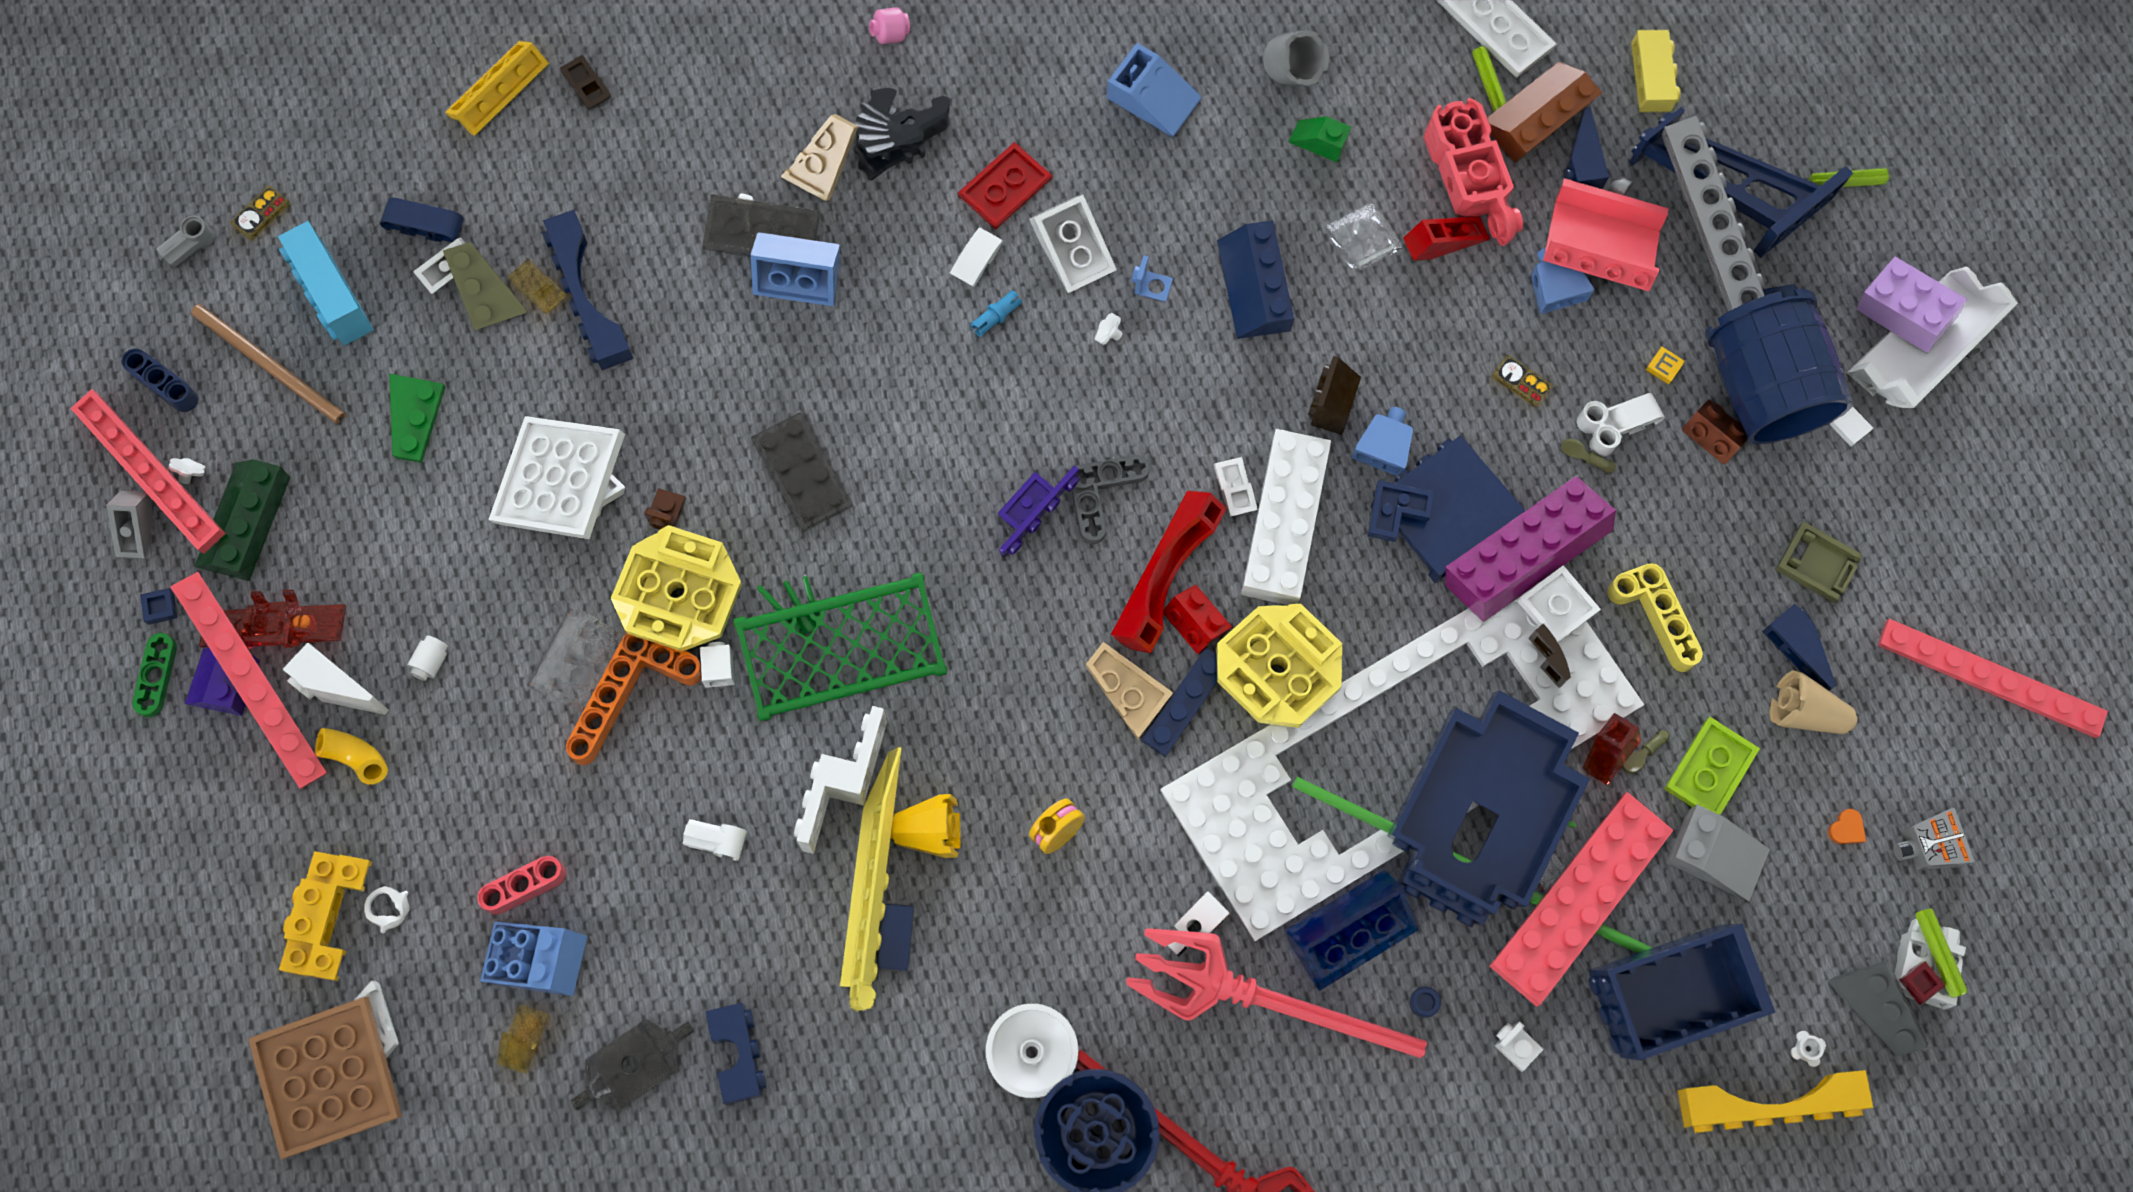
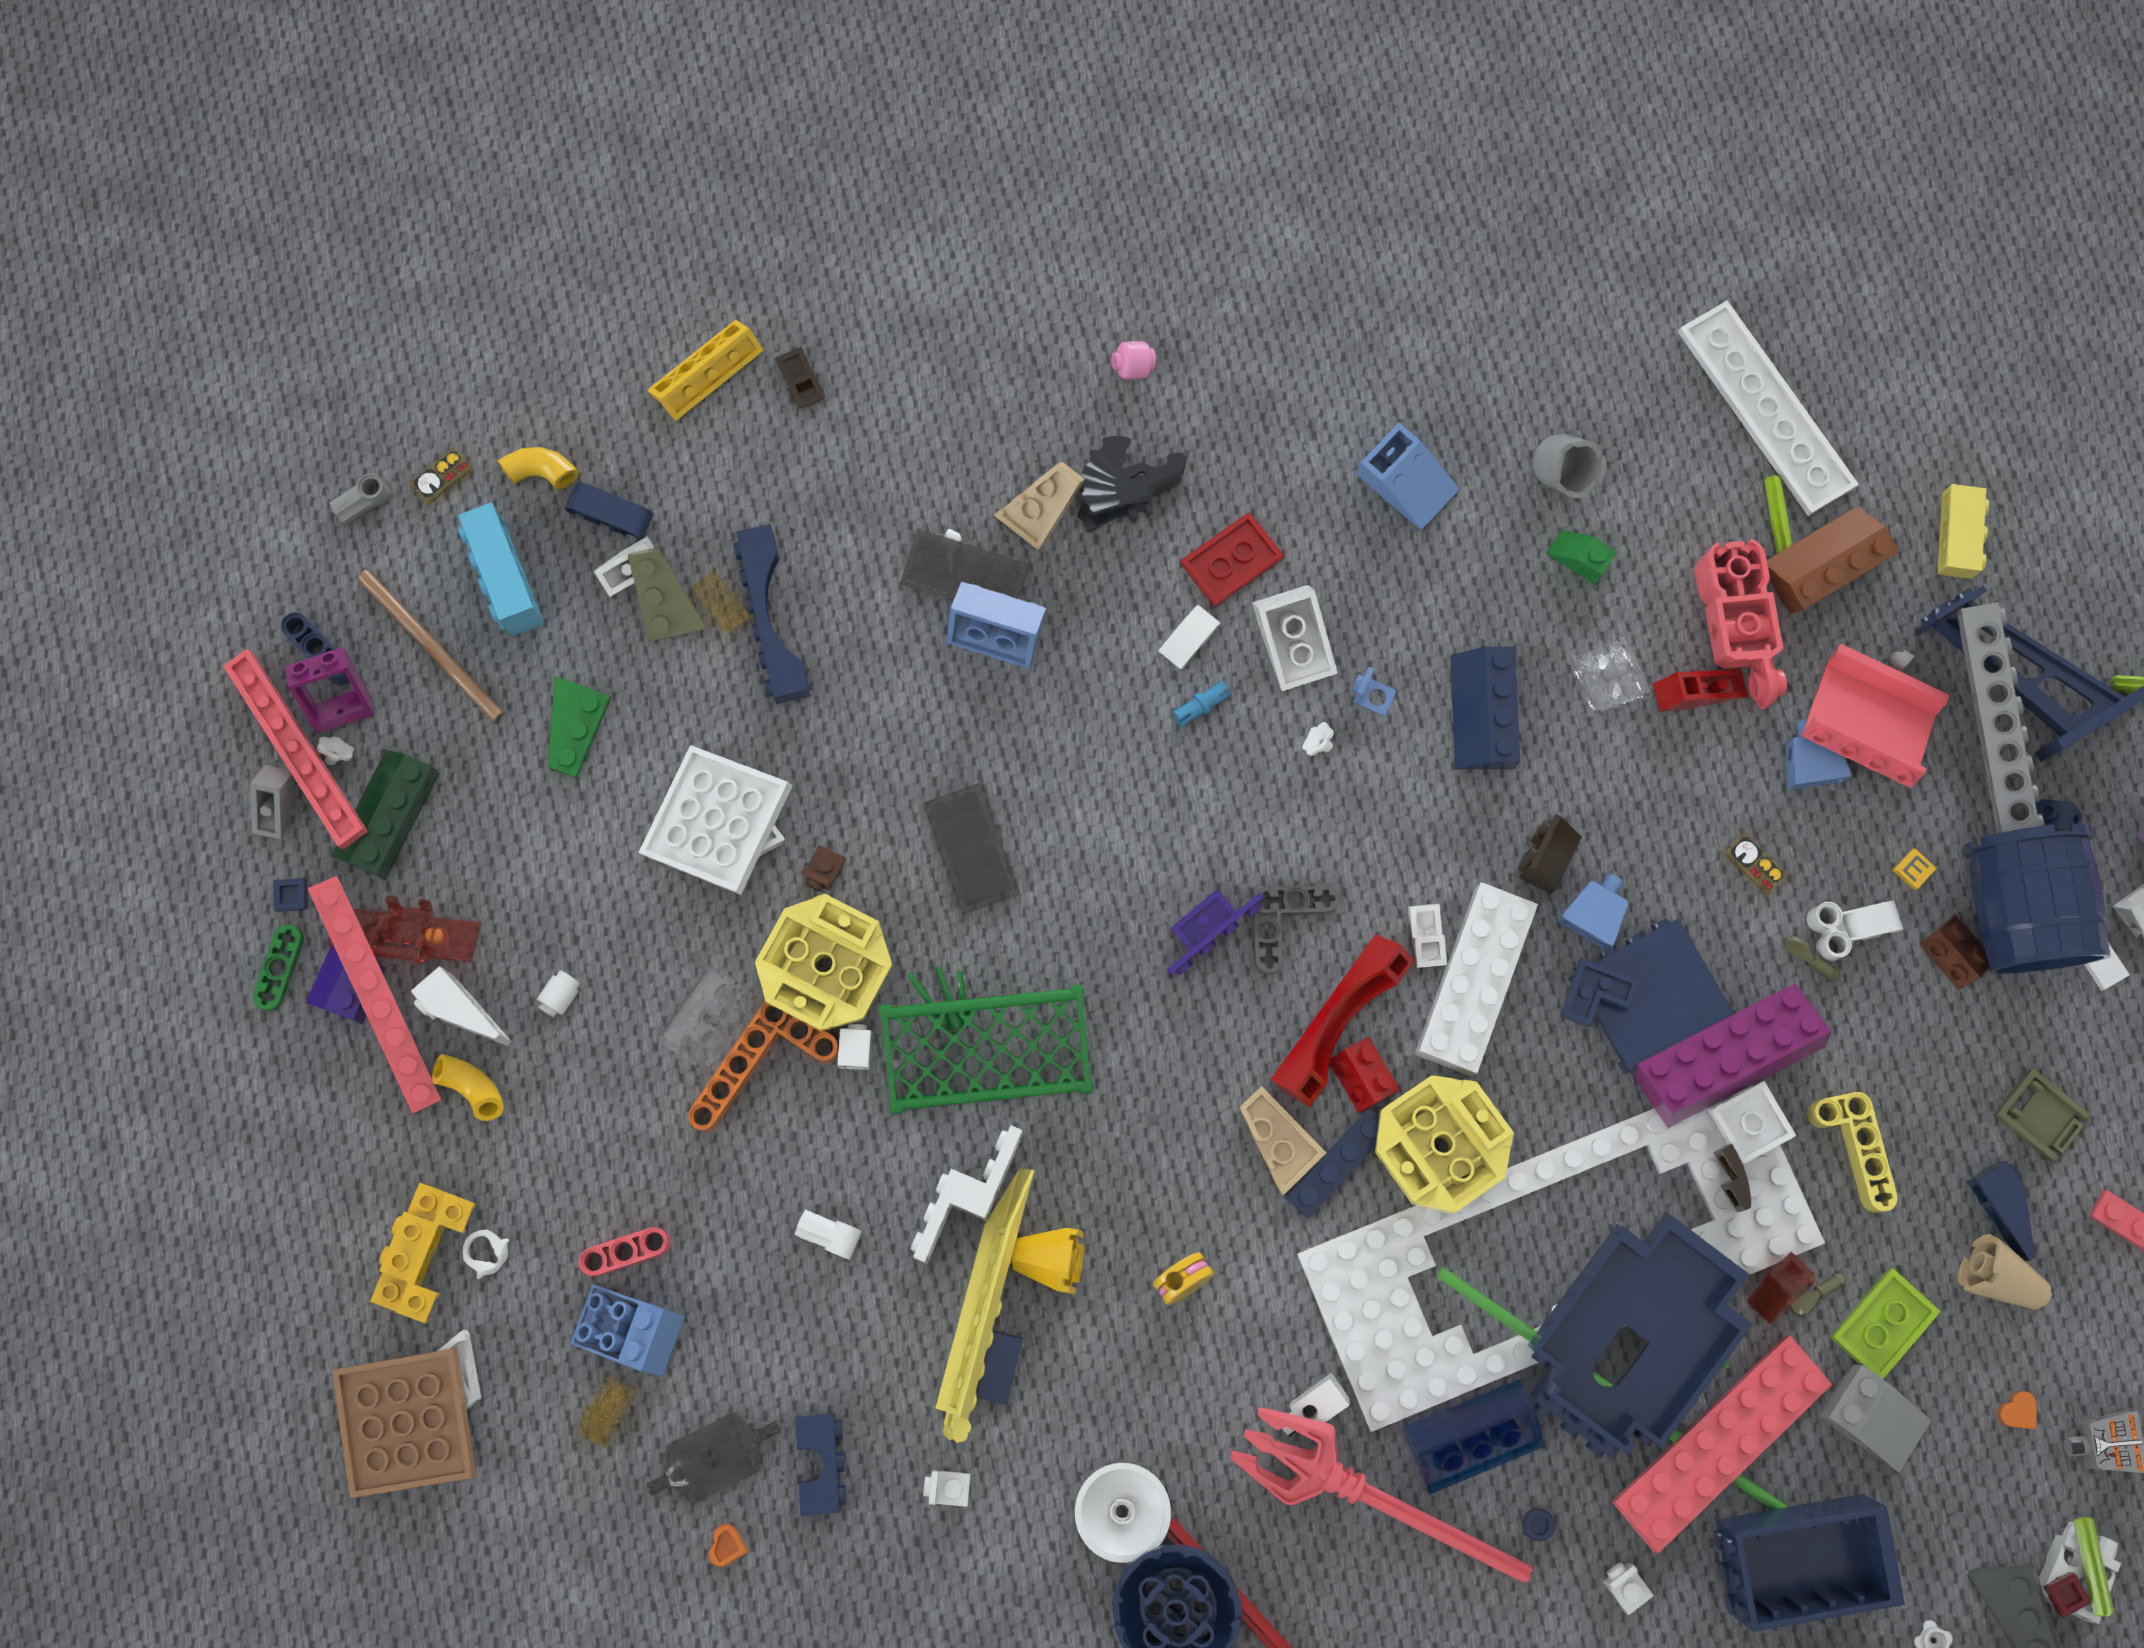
camera: 10 degrees right, 5 degrees up
(175, 437) = (326, 714): none -> magenta window
(351, 187) = (539, 462): none -> yellow cylinder
(657, 1146) = (727, 1545): none -> orange tile
(861, 1057) = (947, 1488): none -> white bracket
(1586, 157) = (1868, 623): dark blue slope -> none

